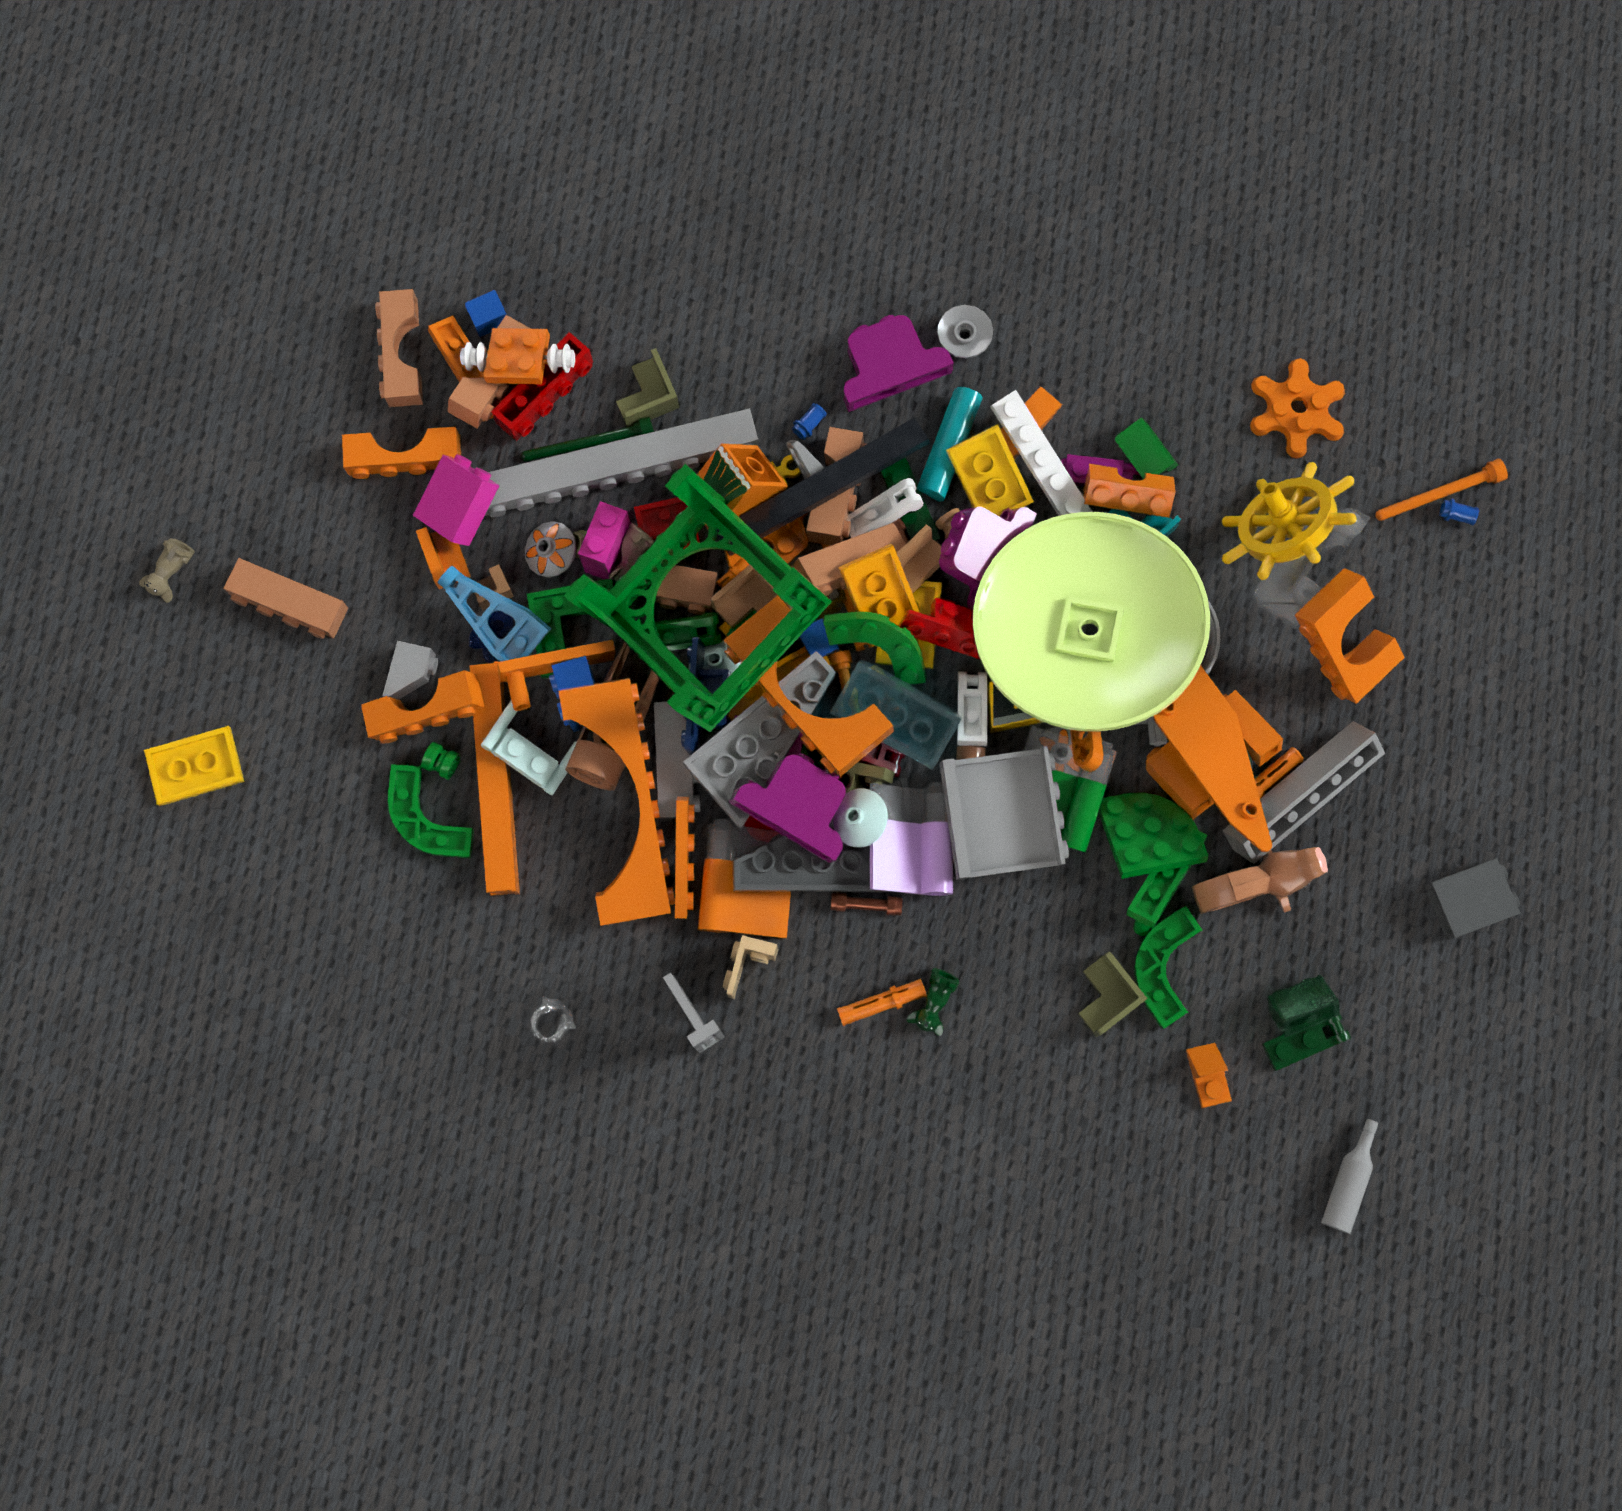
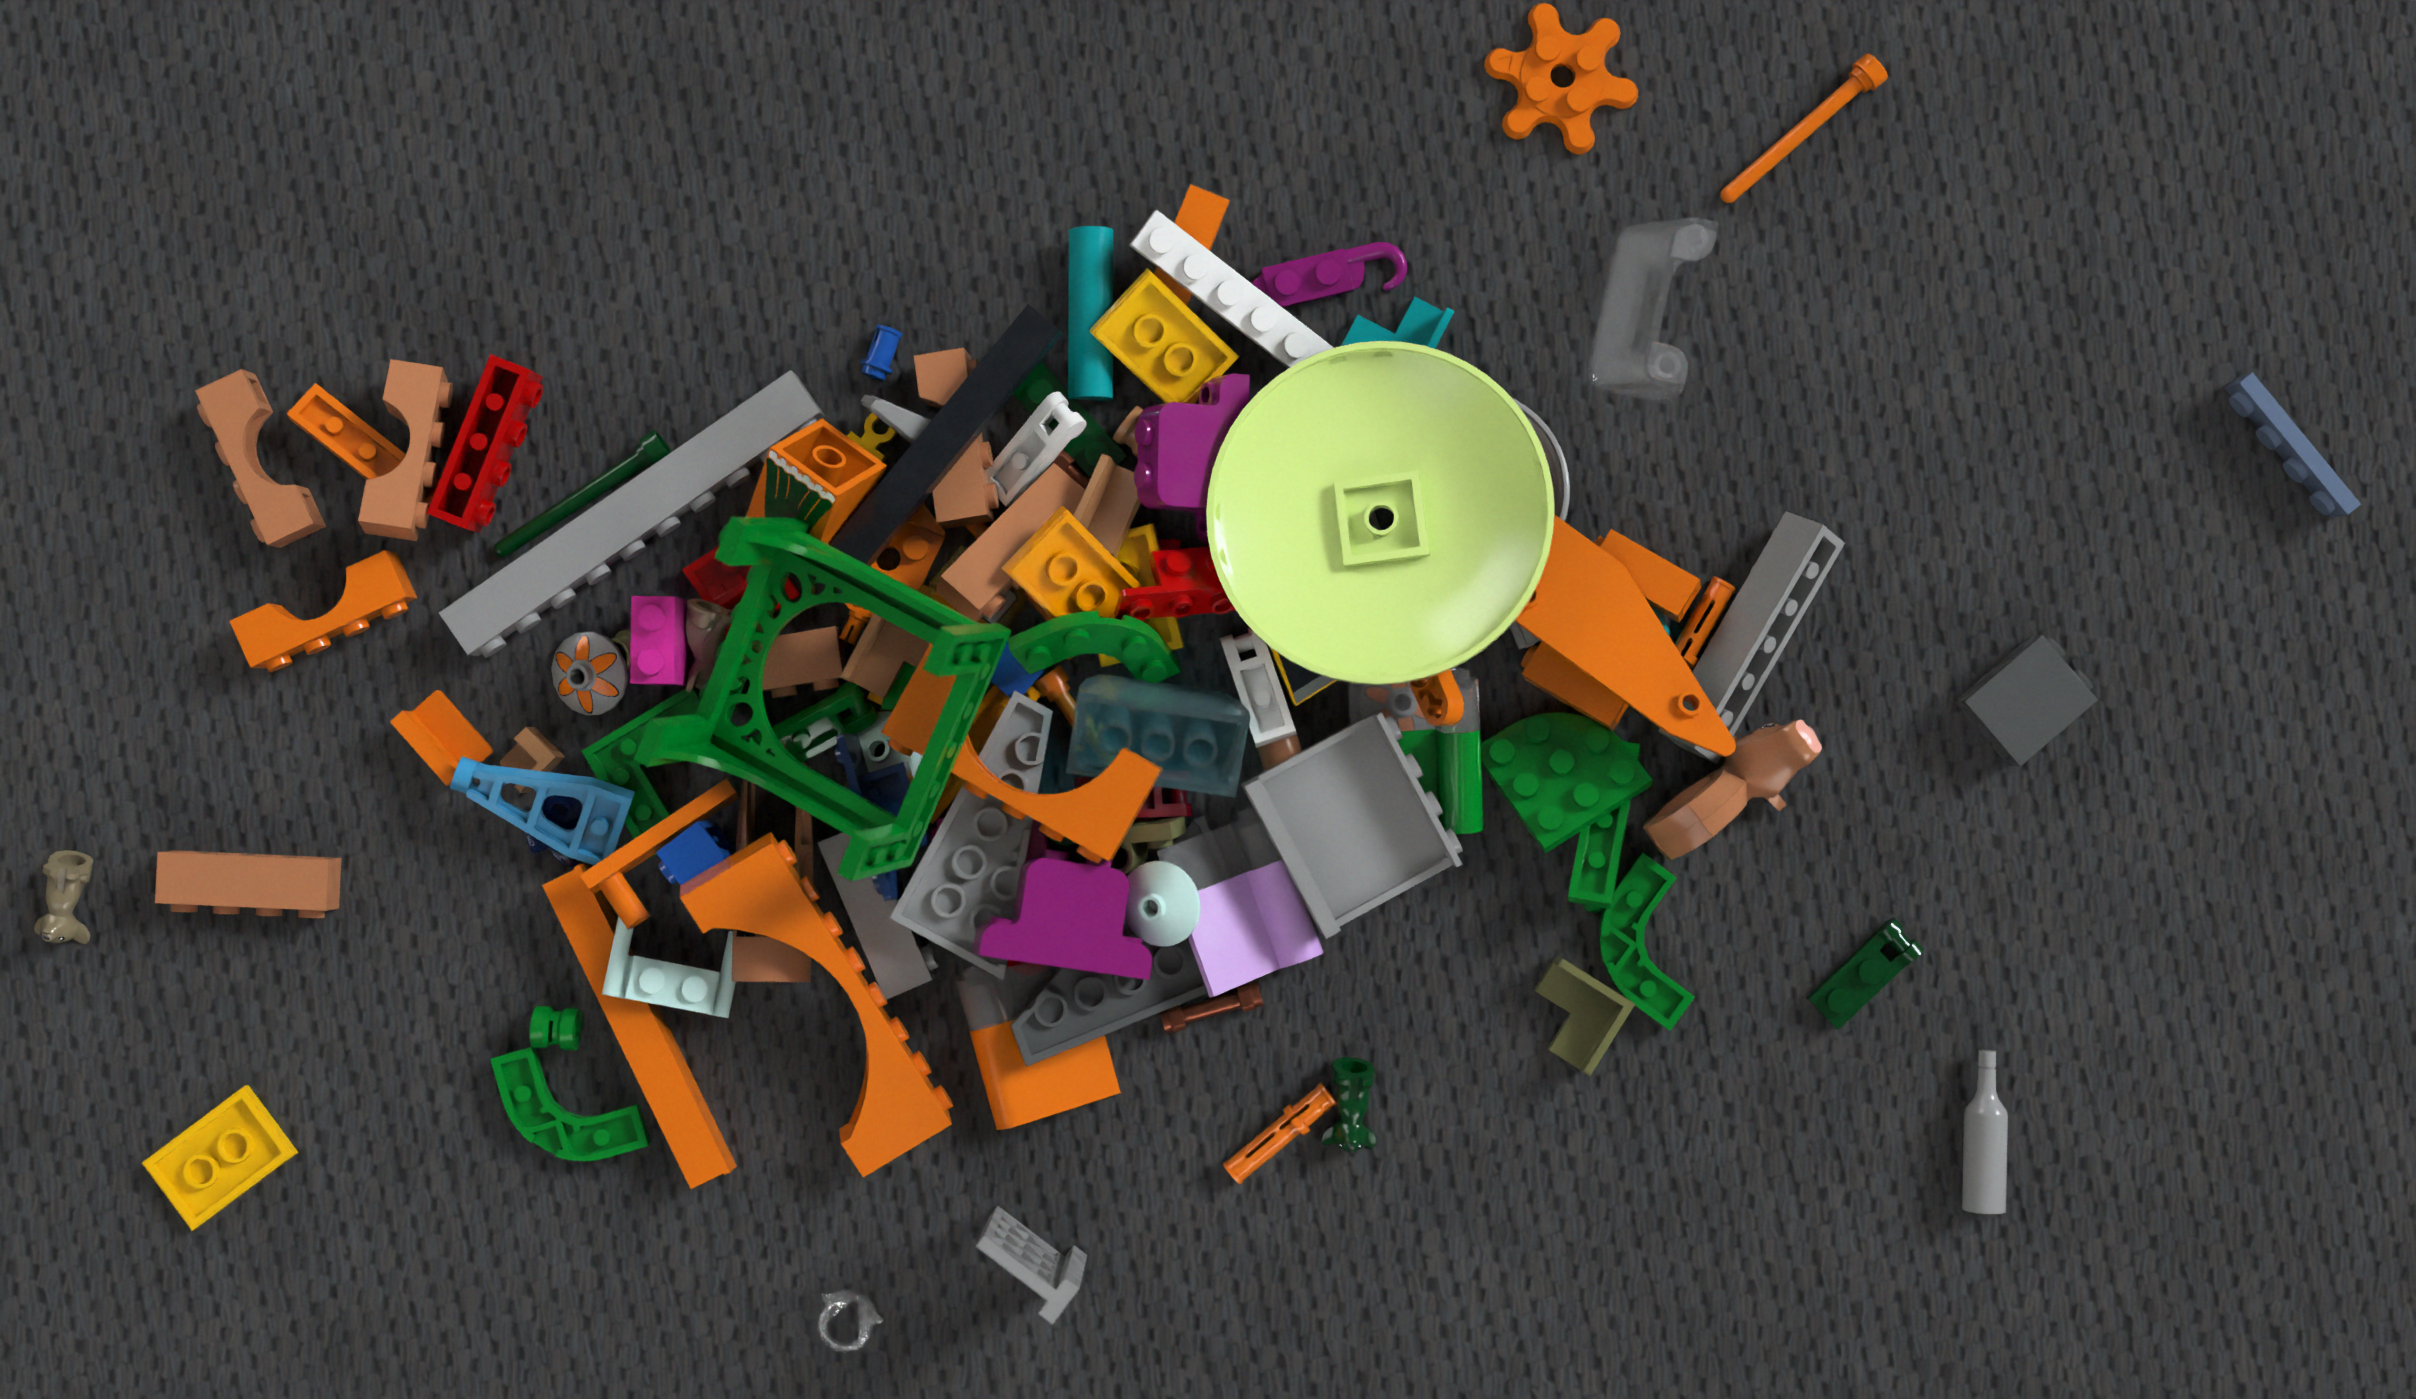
camera: 25 degrees left, 10 degrees up
(409, 669) = (461, 918): light grey slope -> none
(455, 696) = (536, 940): orange arch -> none
(456, 499) = (428, 657): dark pink brick -> none
(486, 312) = (361, 362): blue panel -> none
(517, 356) = (430, 421): orange plate -> none
(656, 392) = (650, 398): olive panel -> none
(683, 869) = (934, 1026): orange plate -> none
(759, 951) = (1091, 1133): tan bracket -> none
(890, 361) = (962, 223): magenta brick -> none
(965, 319) = (1053, 118): light grey dish -> none
(1110, 490) = (1340, 306): orange arch -> none
(1145, 449) = (1370, 223): green panel -> none
(1209, 1075) = (1750, 1067): orange slope -> none
(1287, 520) = (1604, 262): yellow piece -> none
(1303, 1005) = (1845, 931): clear green brick -> none
(1323, 625) = (1706, 396): orange arch -> none
(1458, 512) = (1835, 152): blue pin -> none

